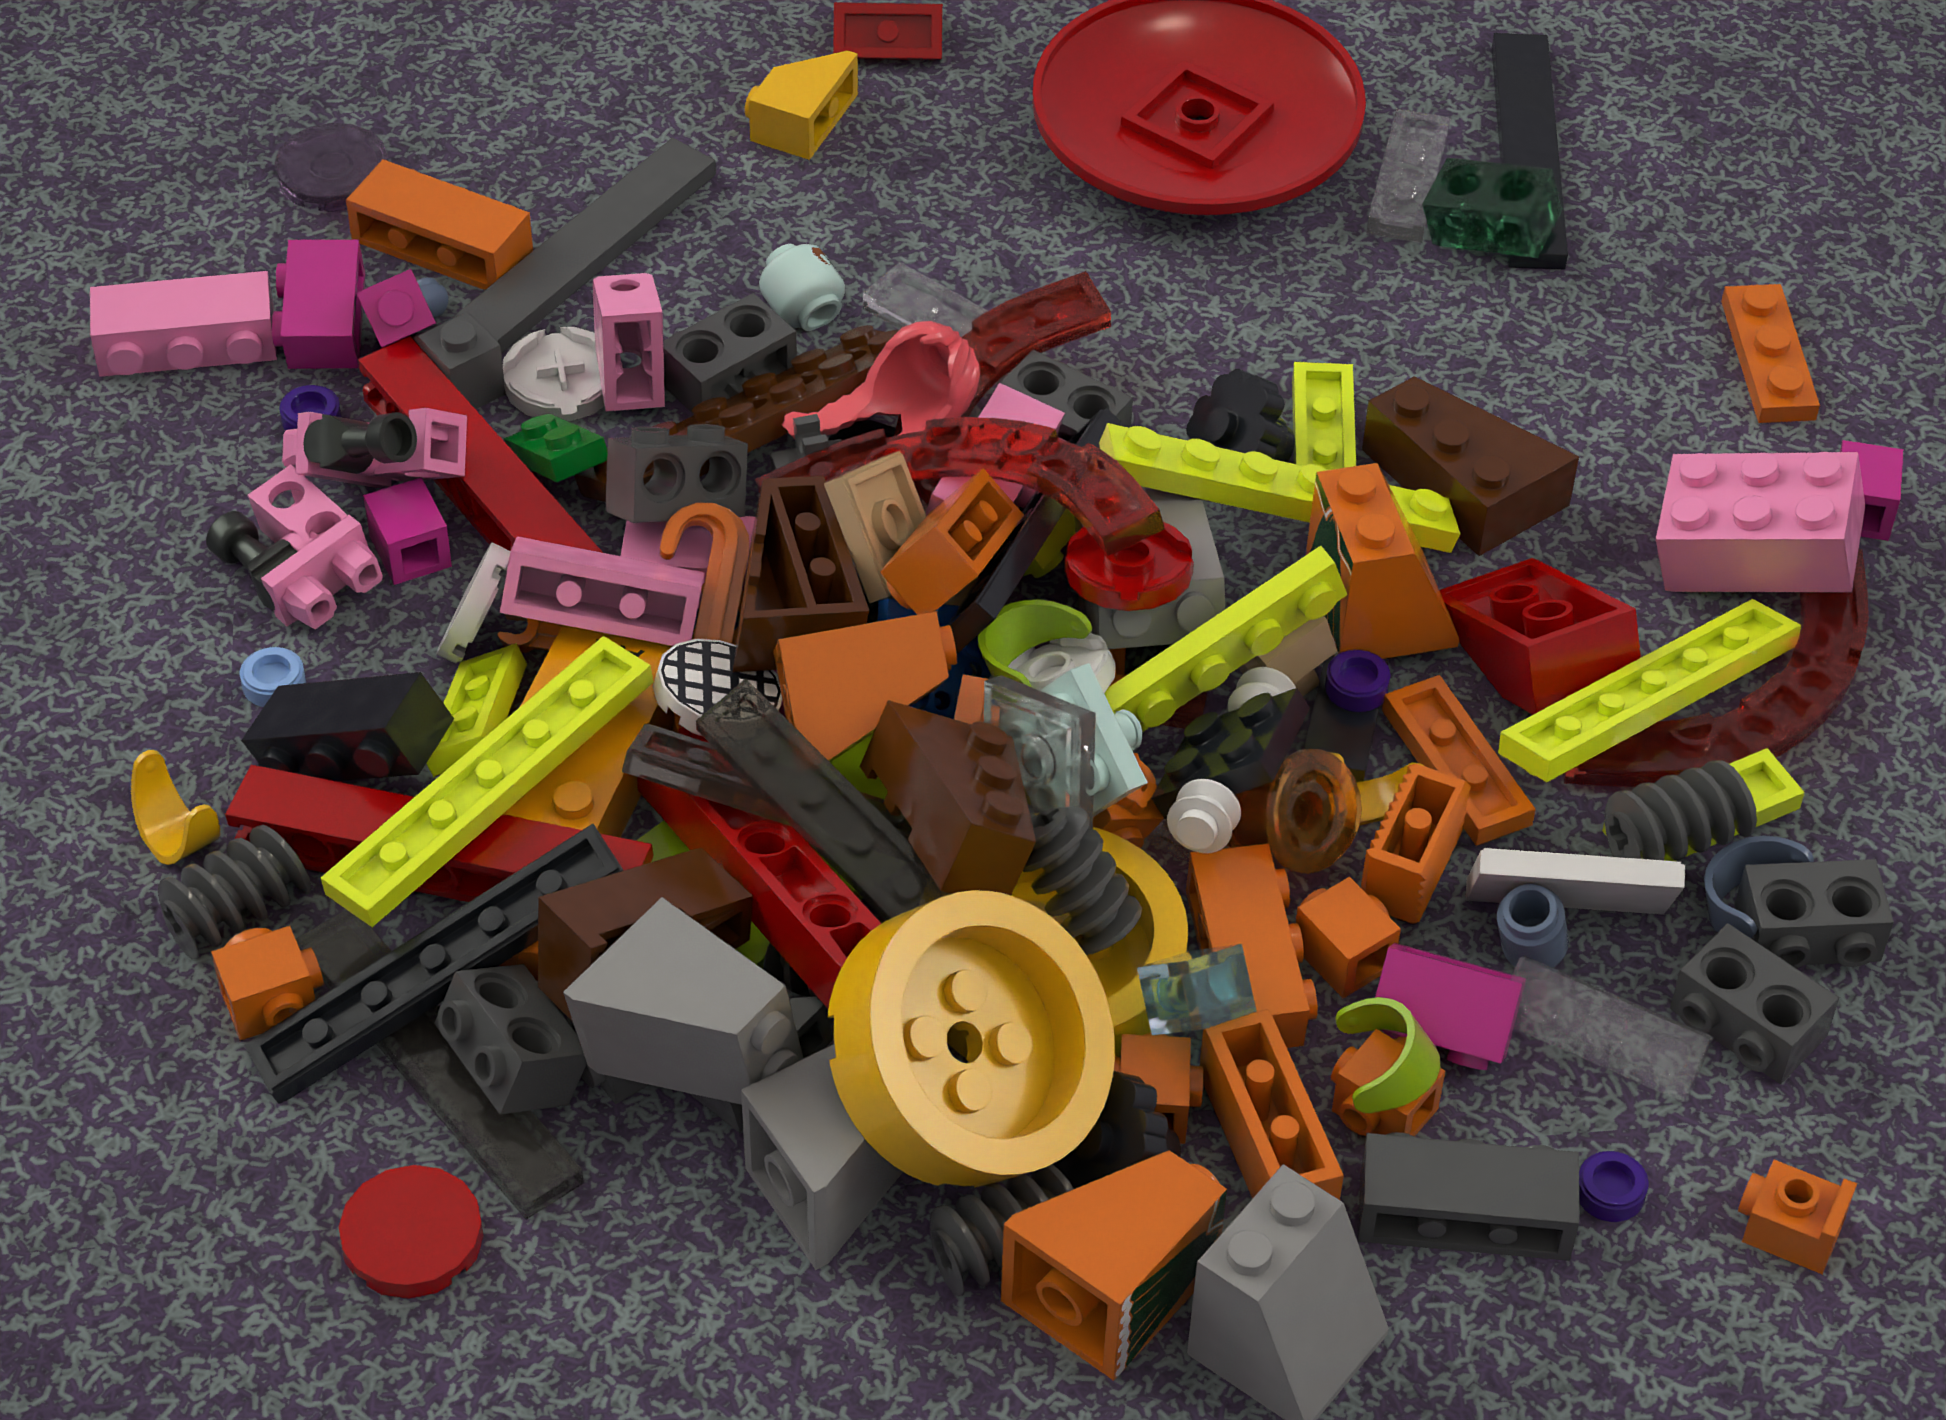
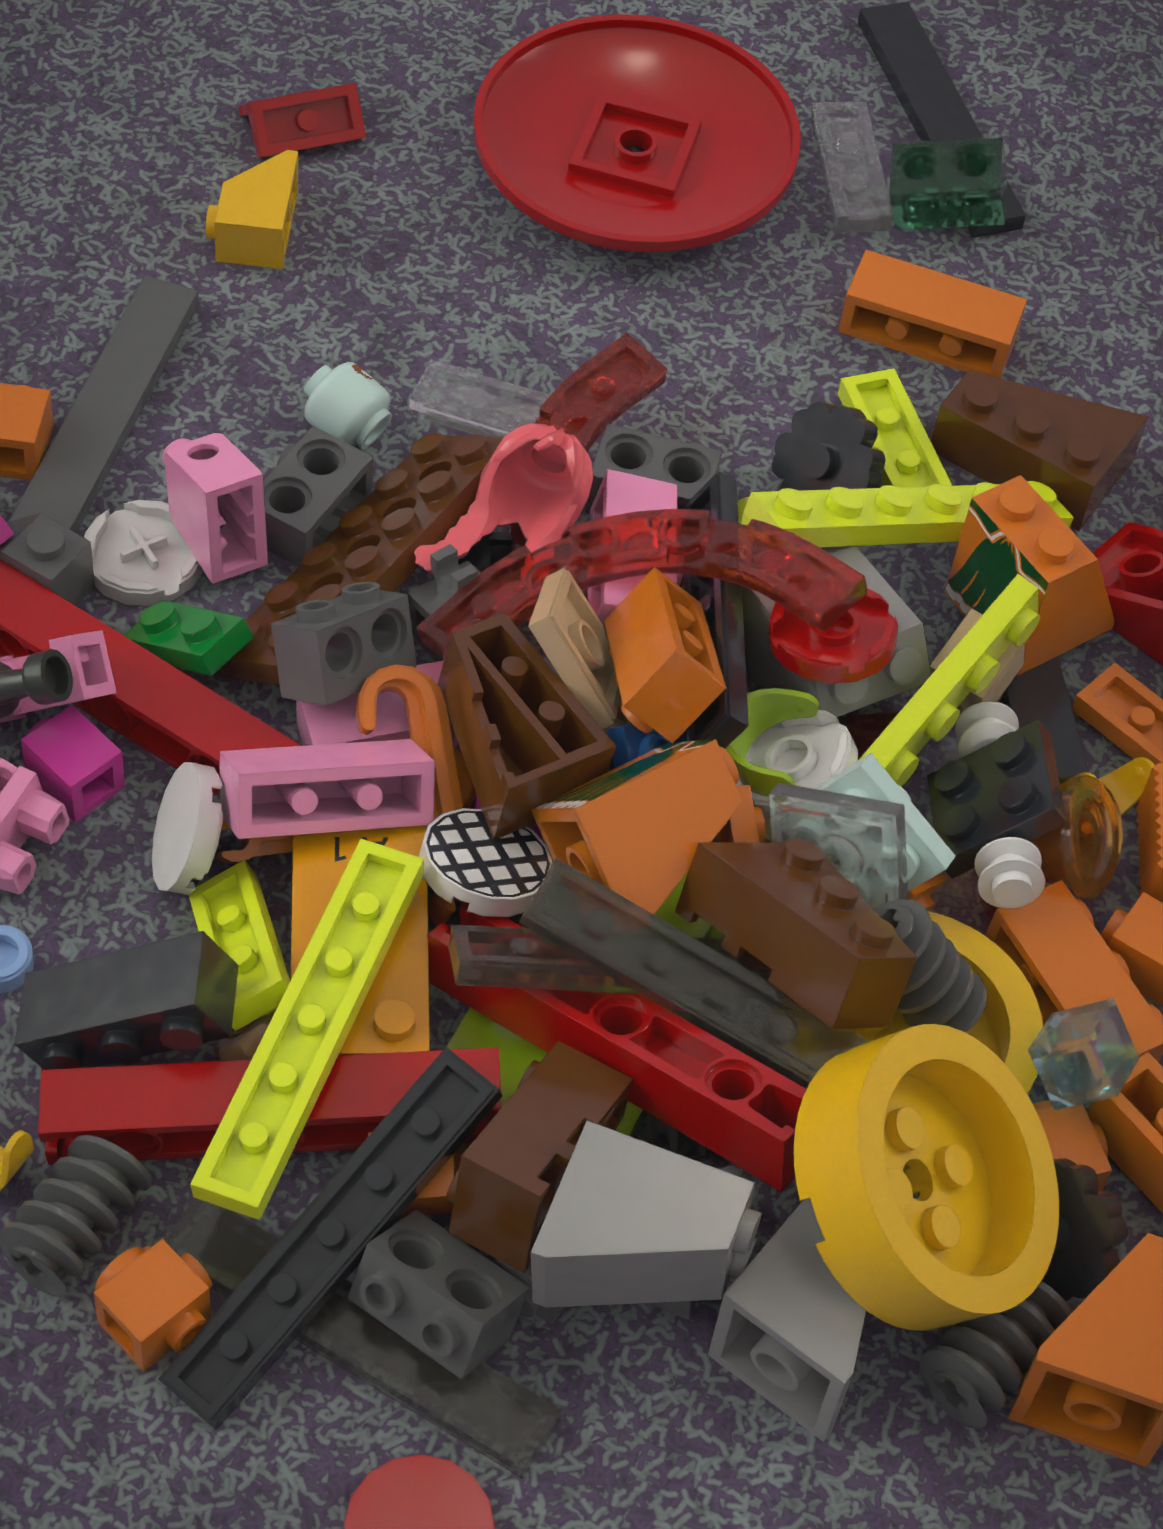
camera: 25 degrees left, 5 degrees up
(1357, 680) = (1046, 687): dark purple tile -> none
(1419, 325) = (931, 315): none -> orange brick

